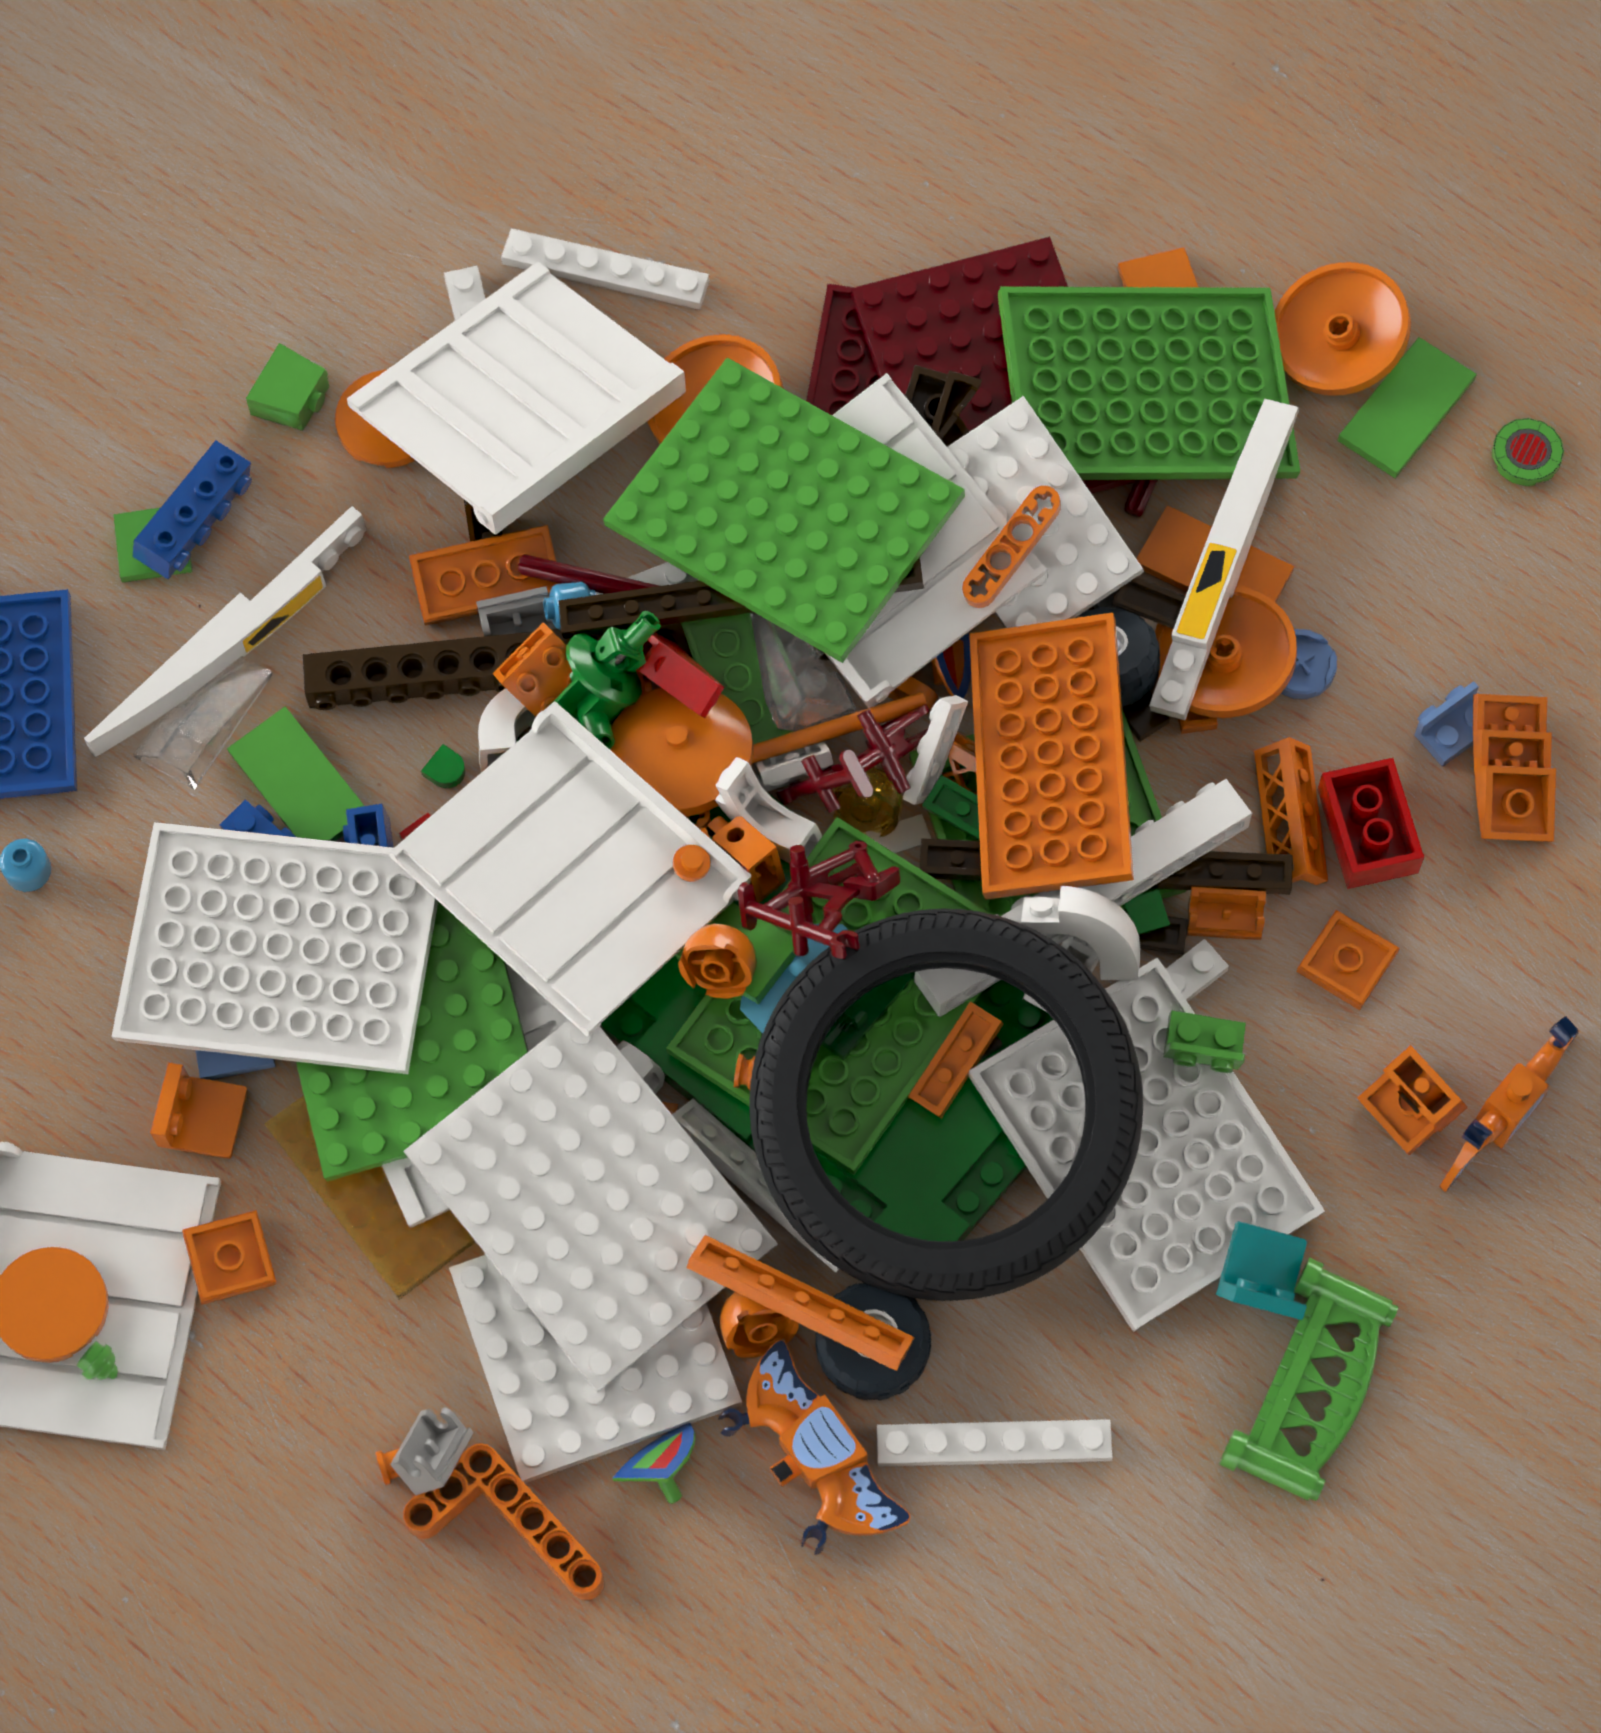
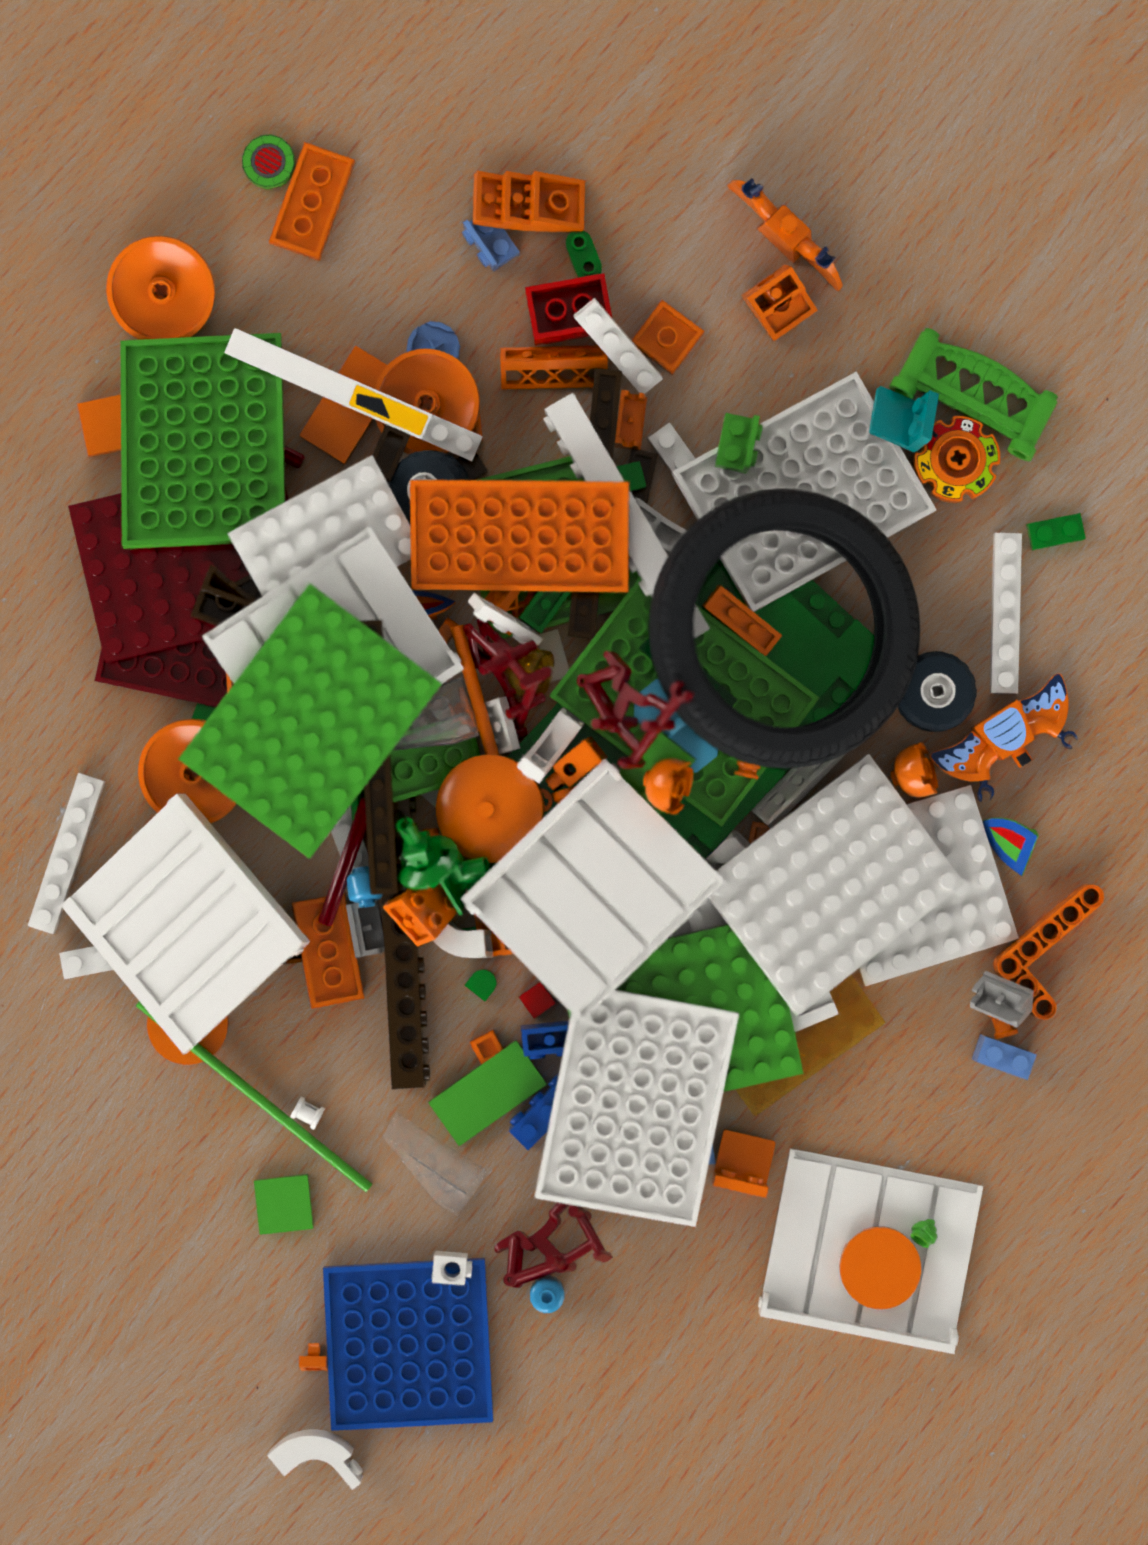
camera: 90 degrees left, 20 degrees up
(59, 724) = (440, 1274): none -> white brick
(69, 865) = (555, 1260): none -> dark red piece
(192, 510) = (263, 1173): blue brick -> none
(229, 635) = (366, 1142): white slope -> none
(229, 1257) = (849, 1141): orange tile -> none
(267, 530) = (276, 1113): none -> bright green piece
(271, 561) = (307, 1113): none -> white bush
(288, 389) = (160, 1099): bright green torso -> none
(349, 1464) = (1004, 1057): none -> medium blue brick
(362, 778) = (486, 1046): none -> orange tile
(680, 675) = (438, 804): red slope -> none
(691, 863) = (593, 802): orange plate -> none
(800, 1302) = (919, 739): orange plate -> none
(1008, 544) = (350, 554): orange beam -> none
(1092, 920) = (654, 517): white arch -> none
(1119, 1510) = (1056, 531): none -> green plate
(1226, 1332) = (973, 473): none -> orange piece
(1324, 883) = (618, 346): none -> white plate
(1407, 407) = (226, 247): bright green tile -> none
(1450, 845) = (583, 255): none -> green plate
(1481, 506) = (312, 201): none -> orange tile

